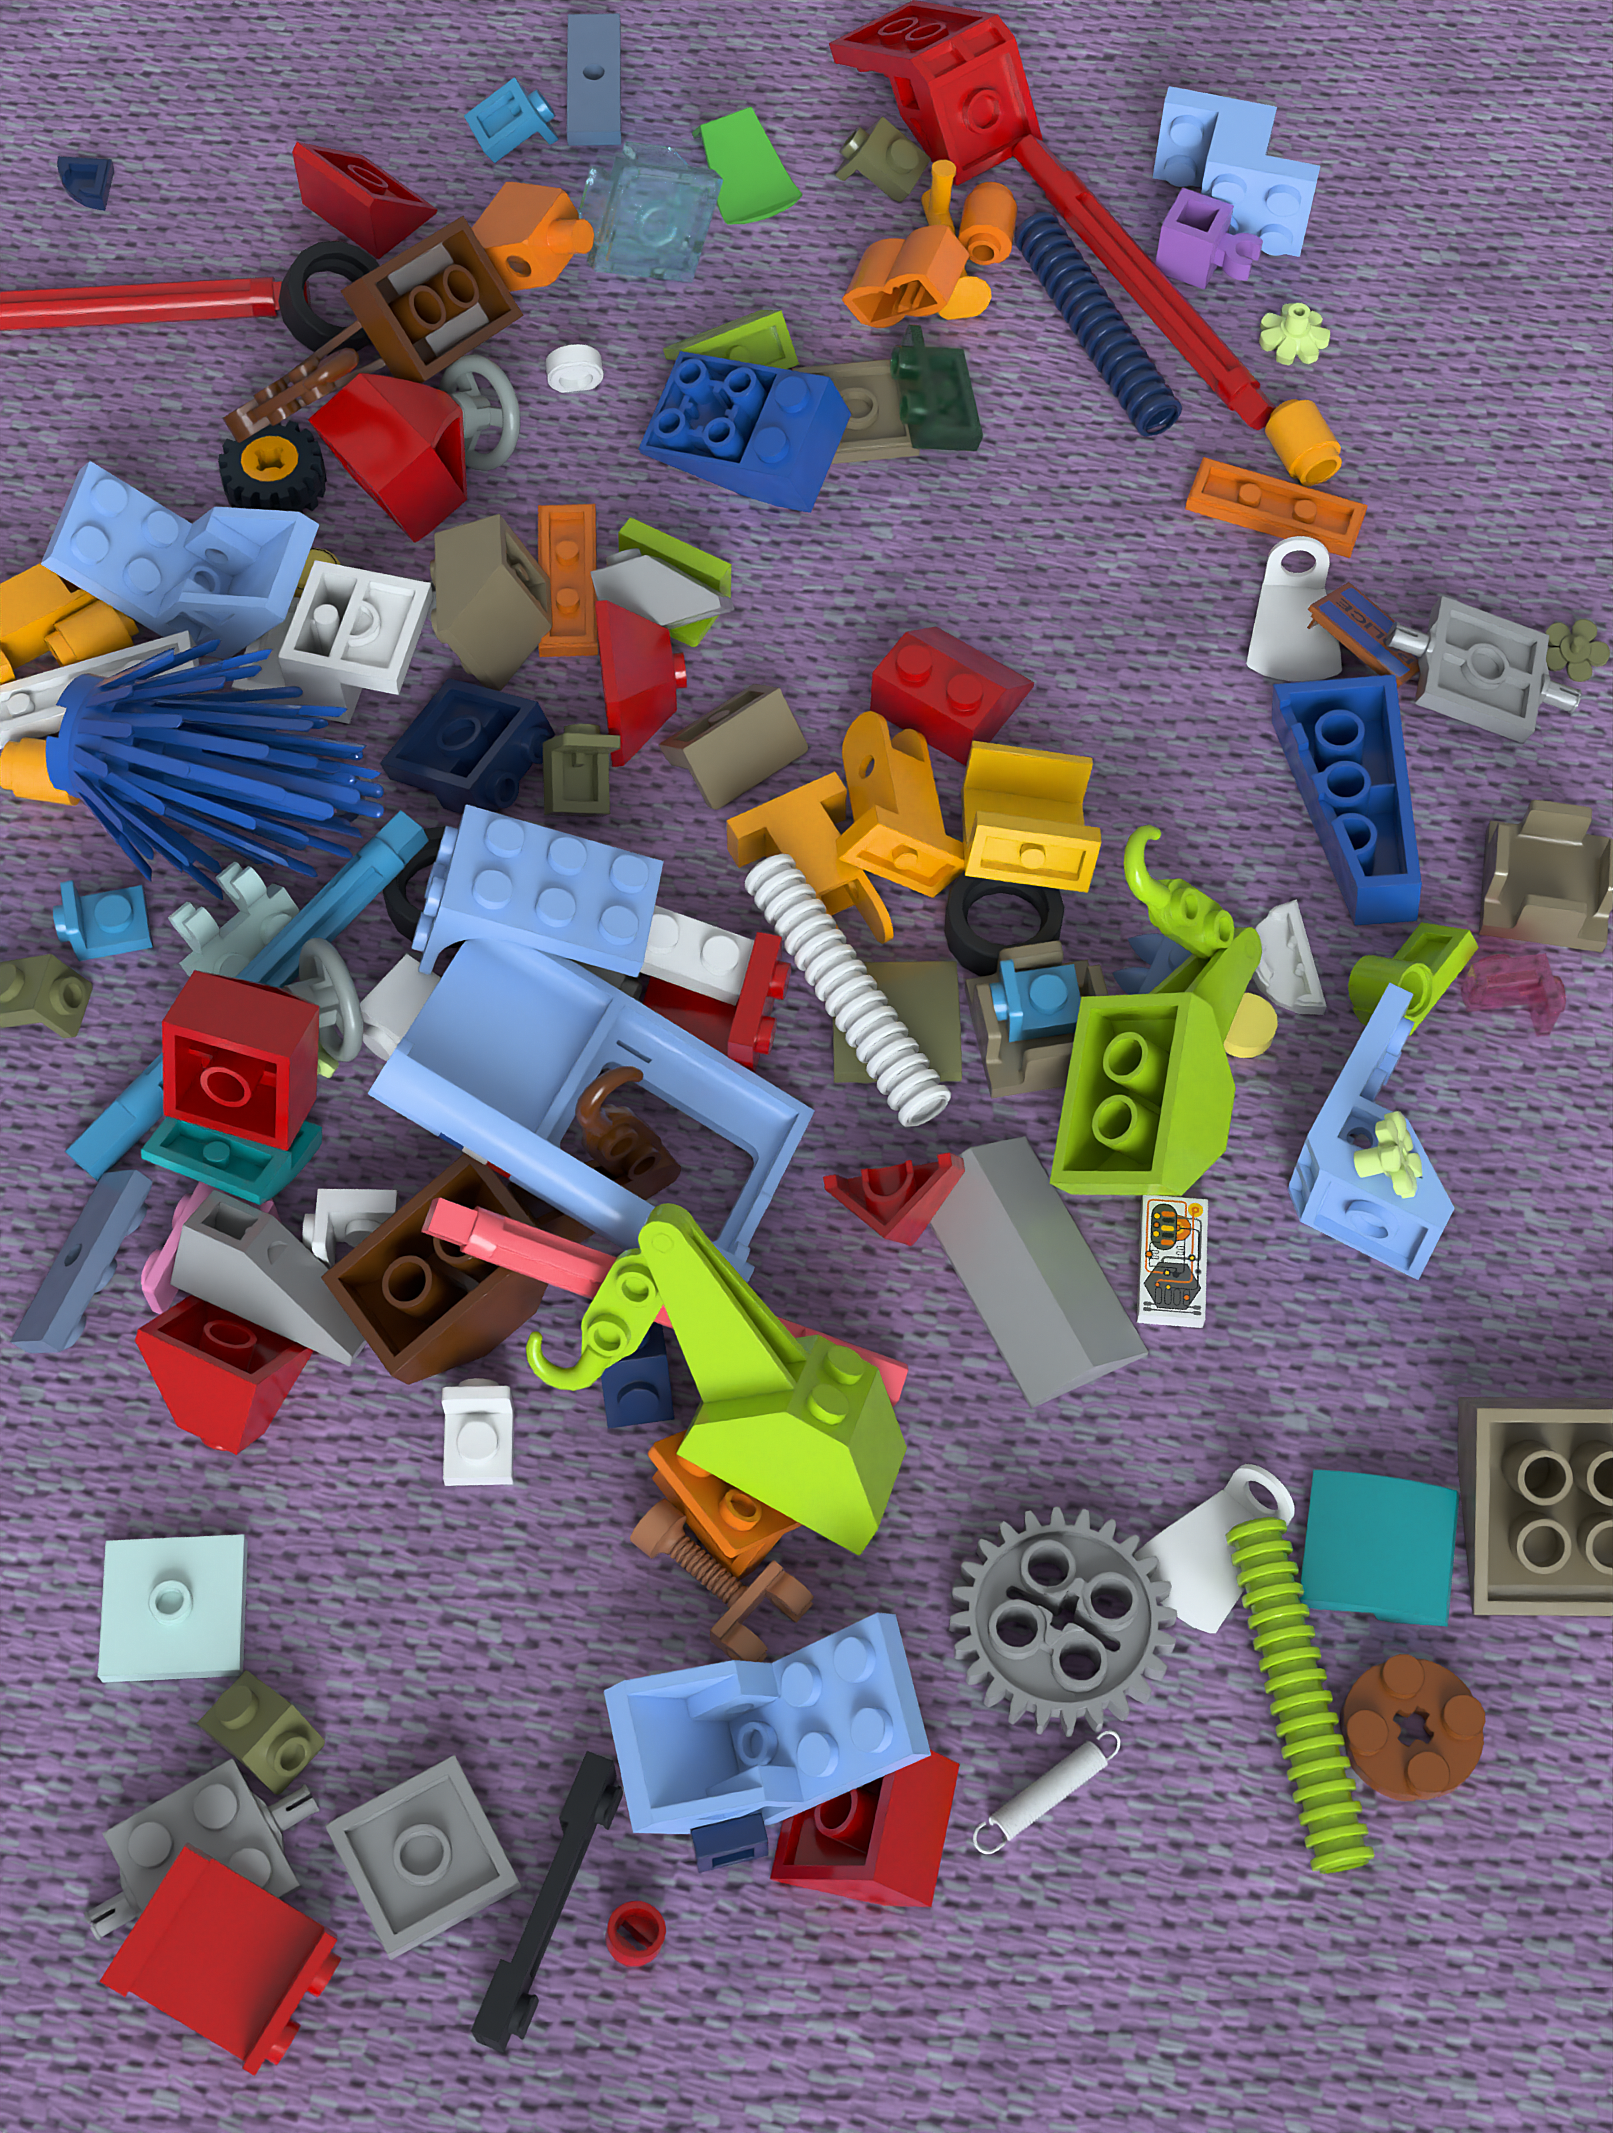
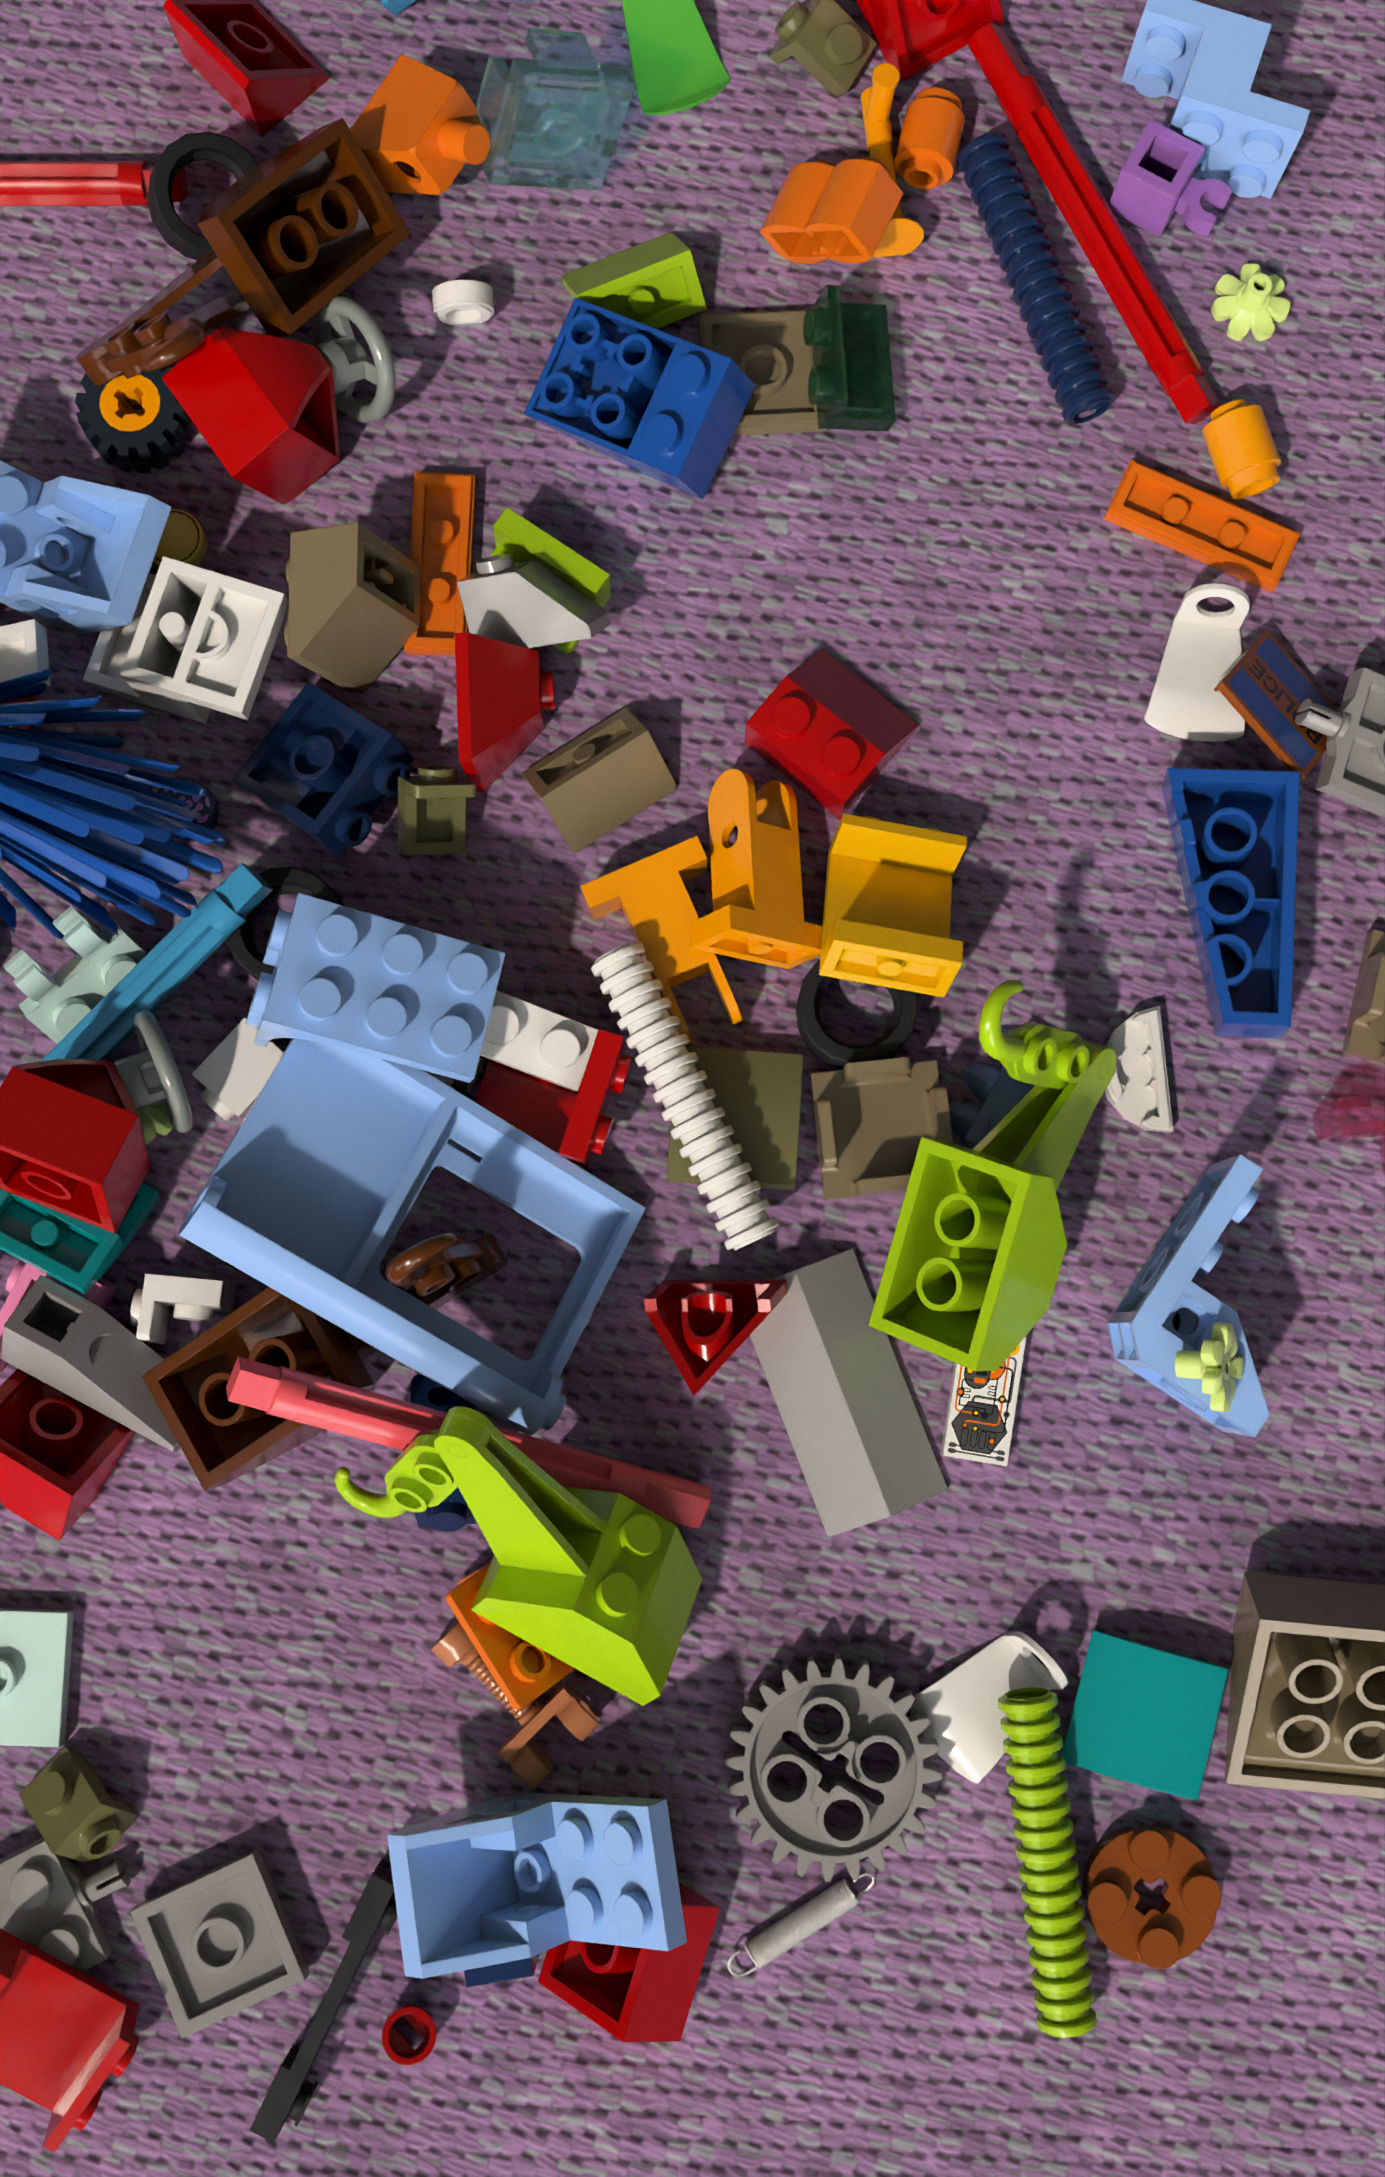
camera: 10 degrees right, 20 degrees up
(478, 1433) = (294, 1528): white bracket -> none
(1036, 1001) = (879, 1113): dark azure bracket -> none
(1251, 1027) = (1097, 1147): light yellow piece -> none
(1421, 966) = (1267, 1108): lime plate -> none

